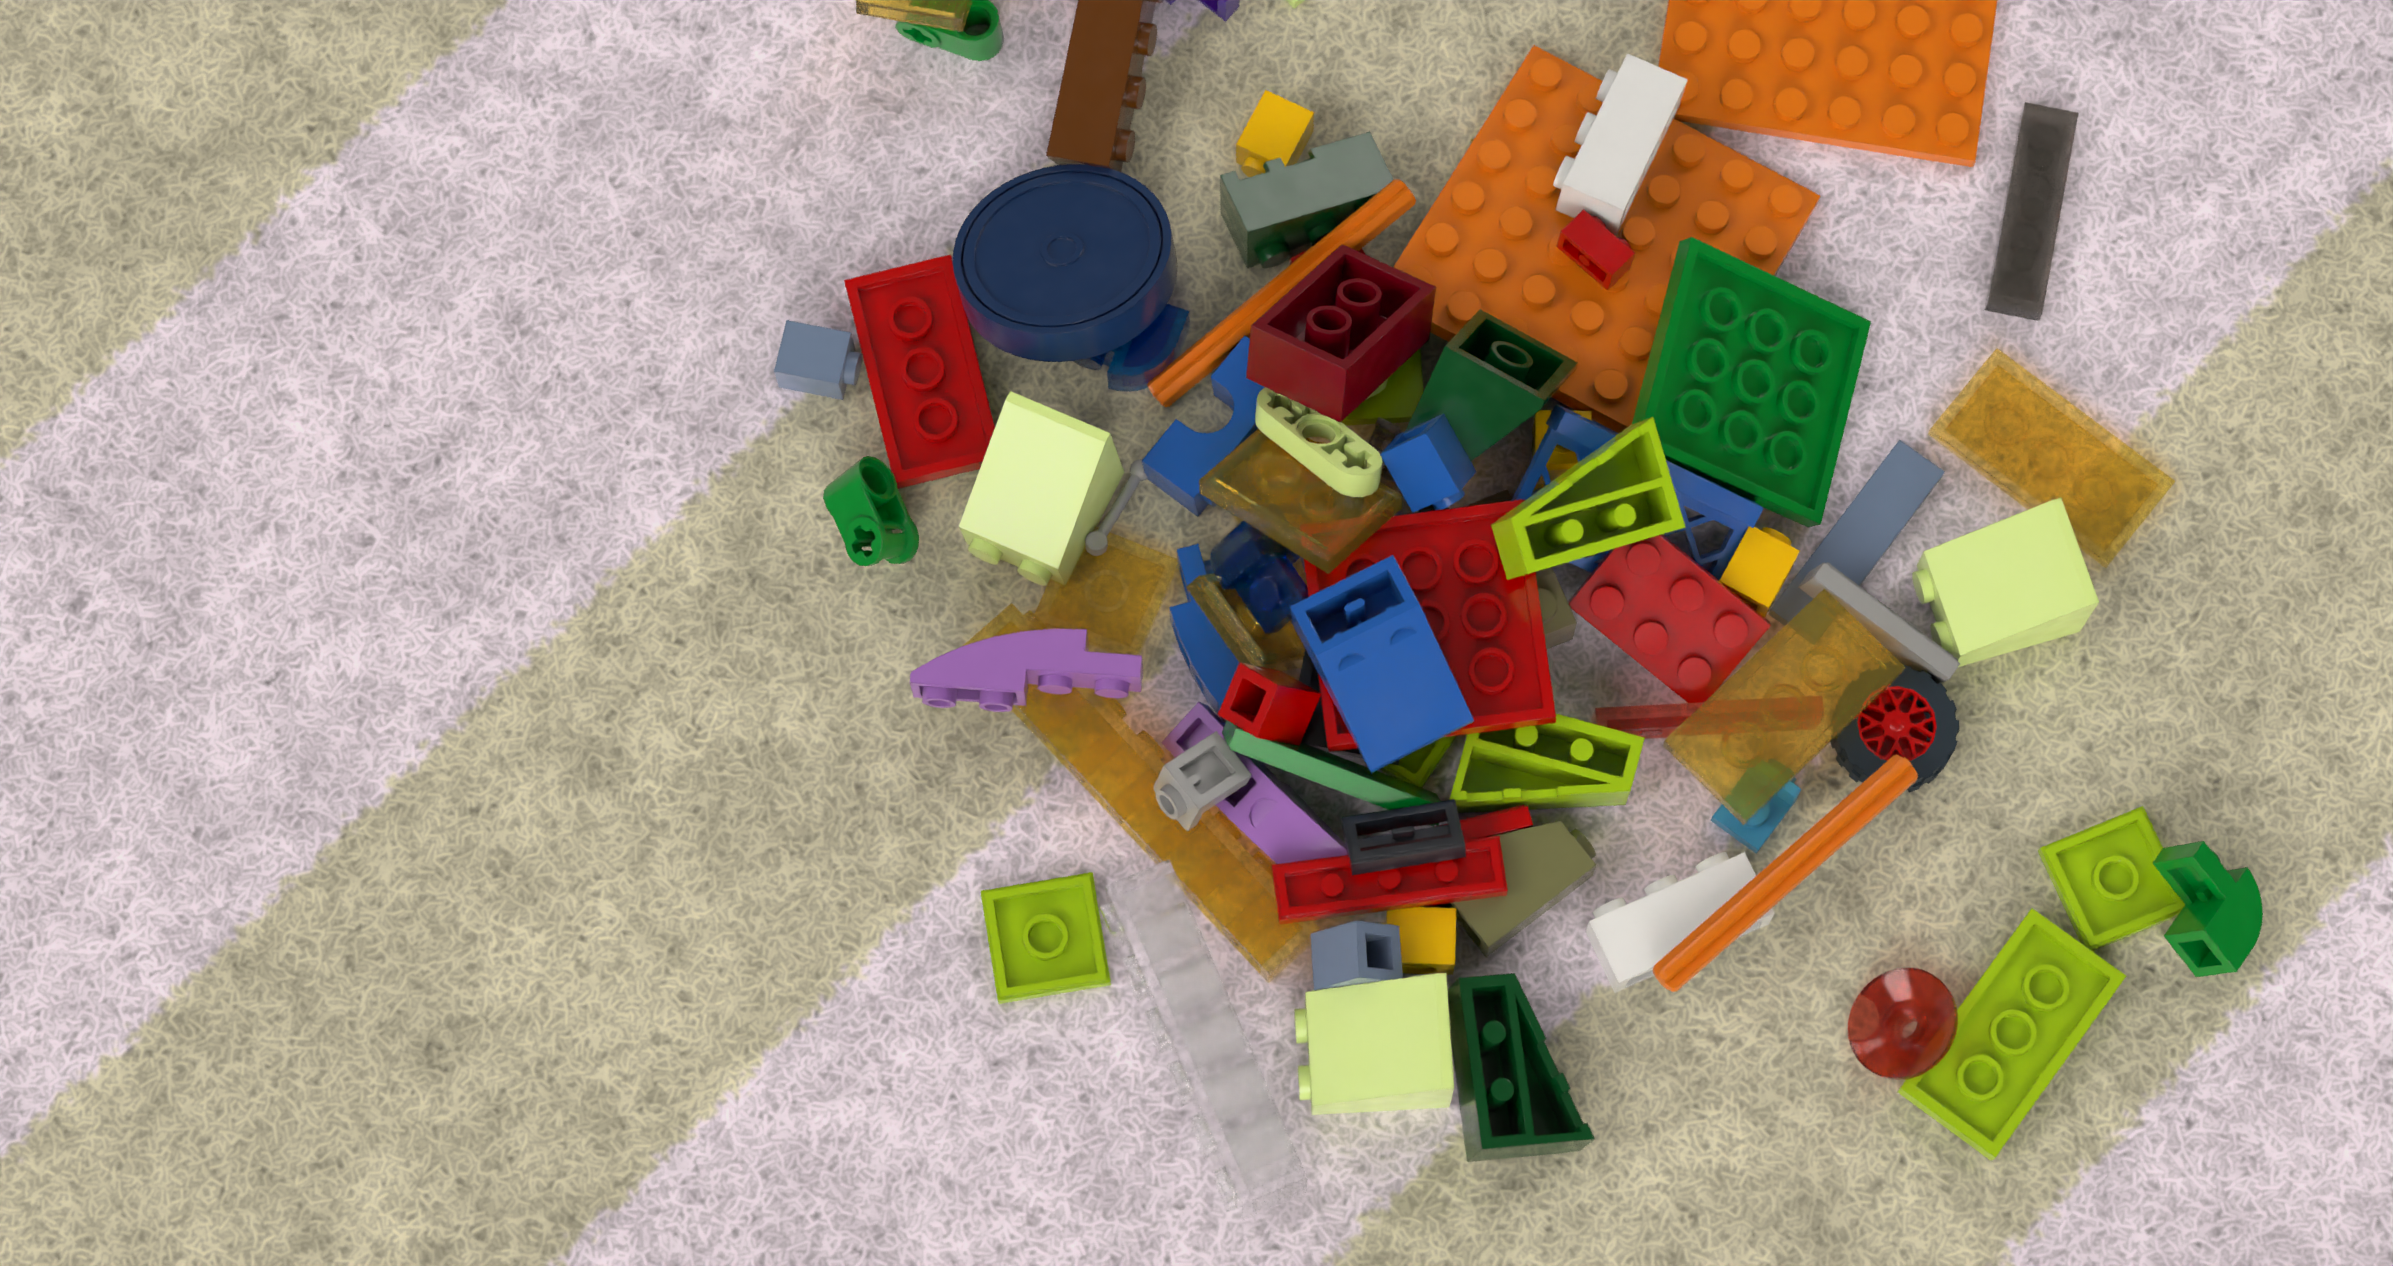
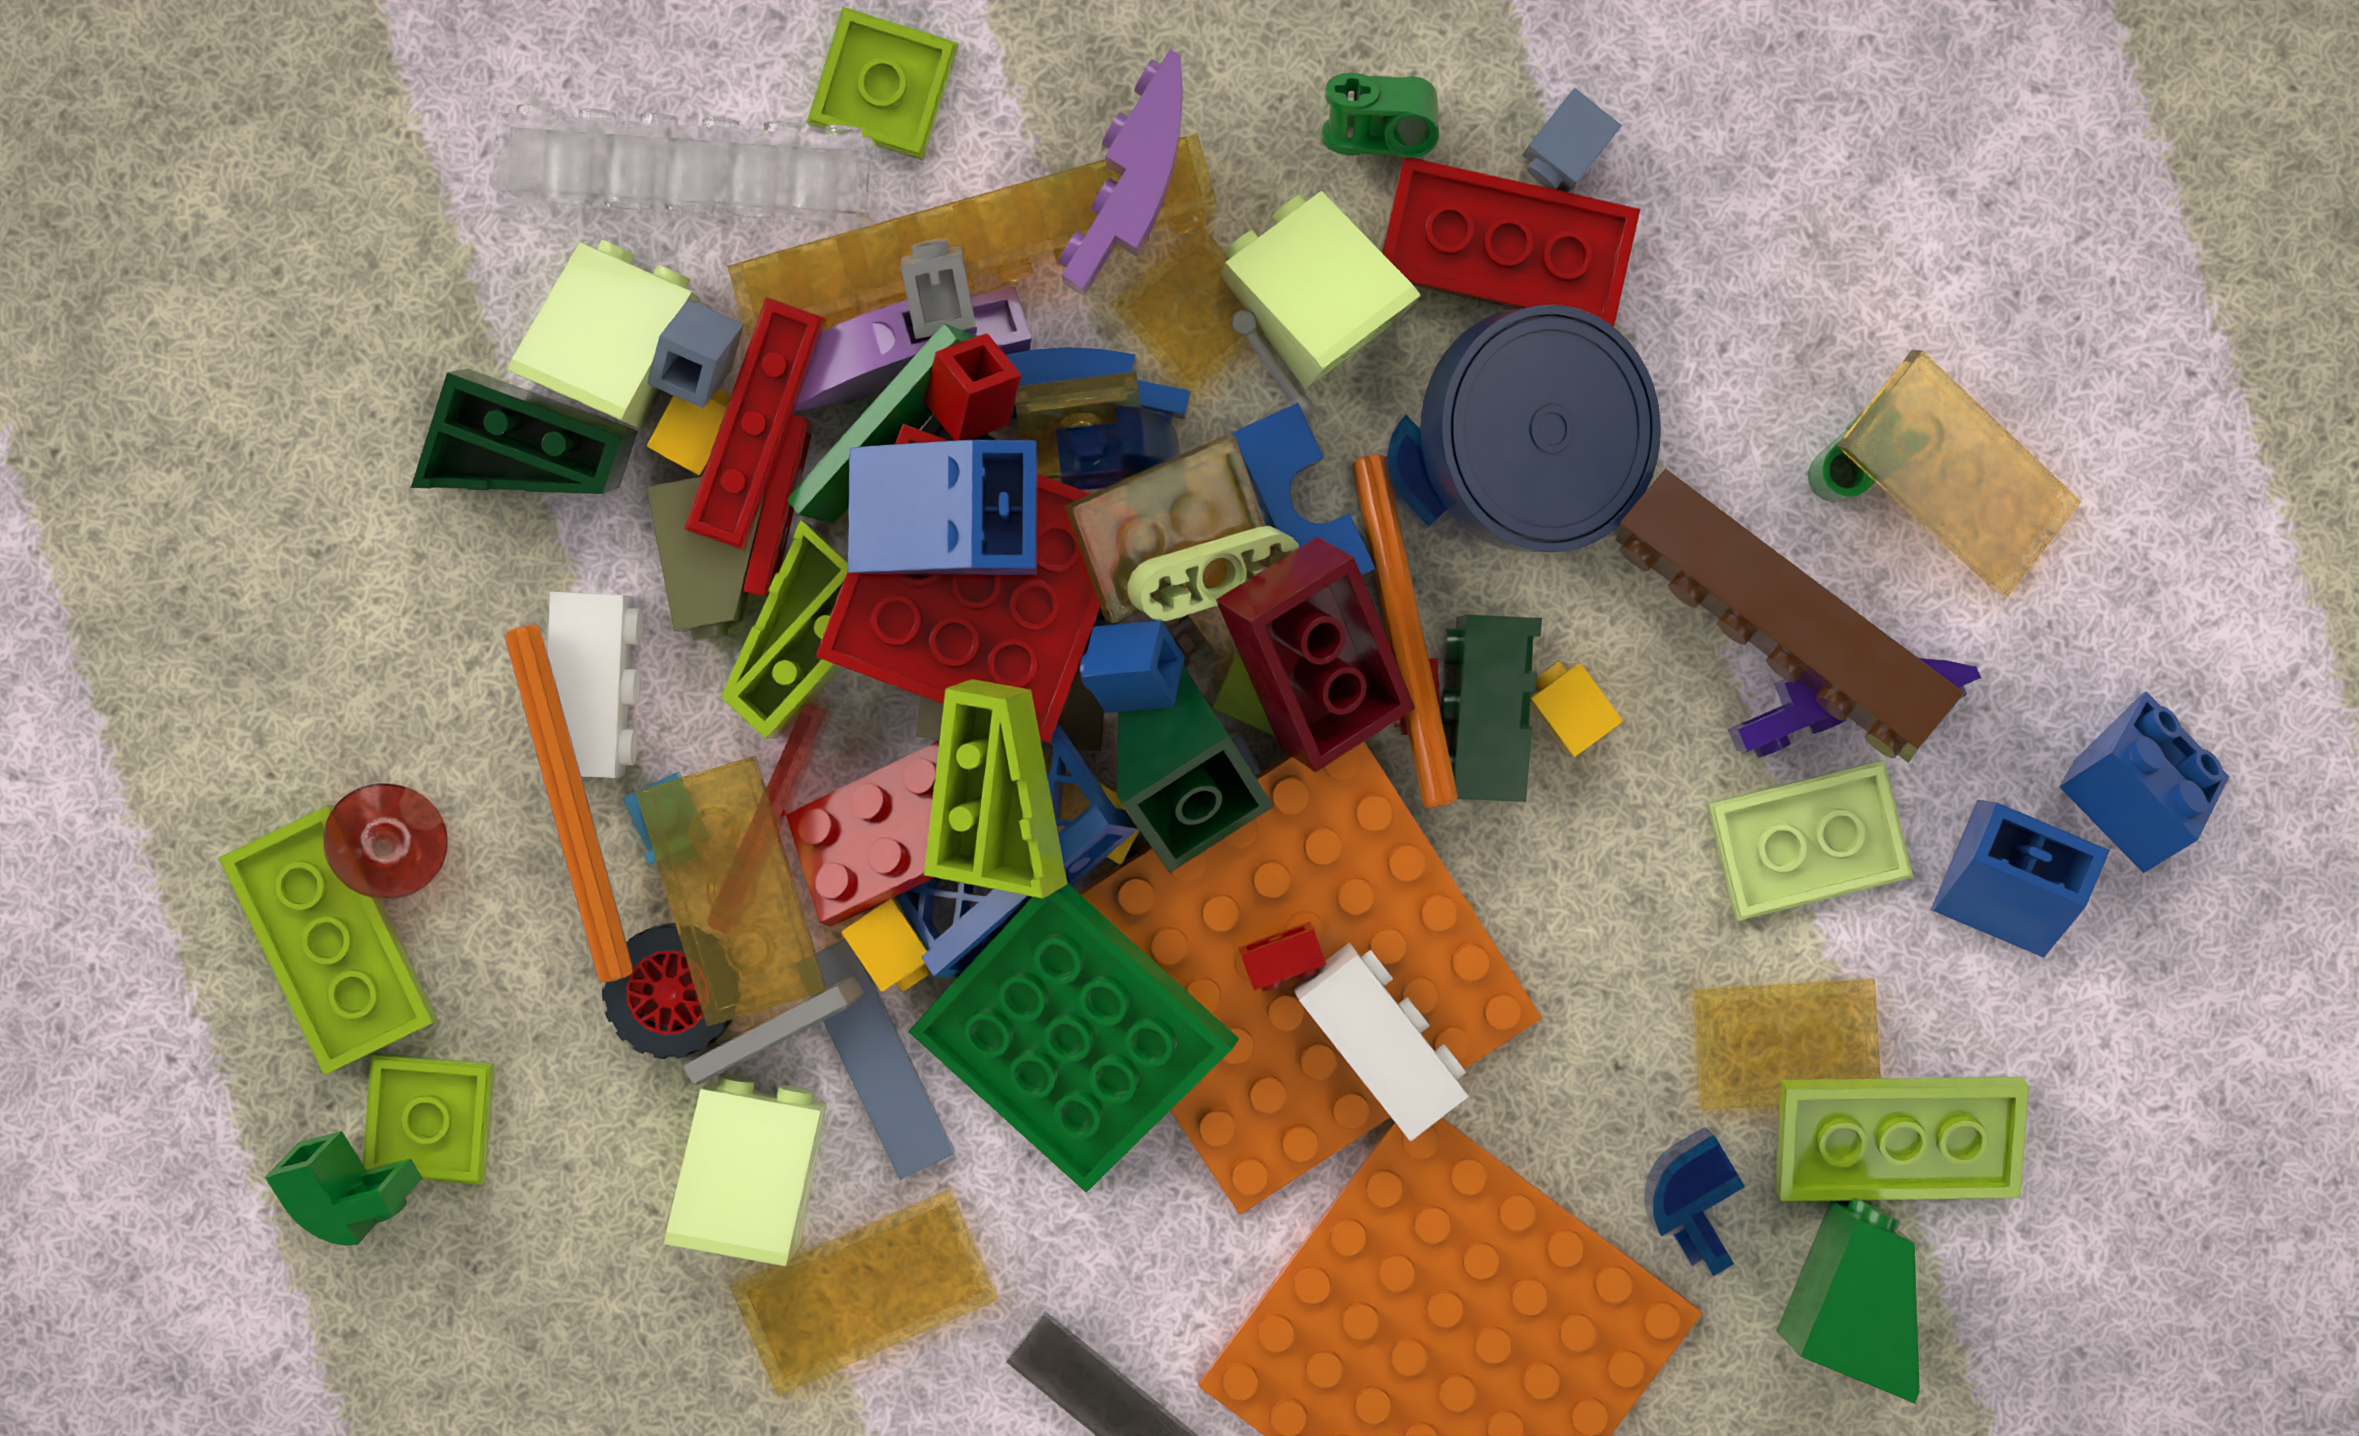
camera: 115 degrees right, 15 degrees up
(1405, 844) = (760, 448): black tile -> none

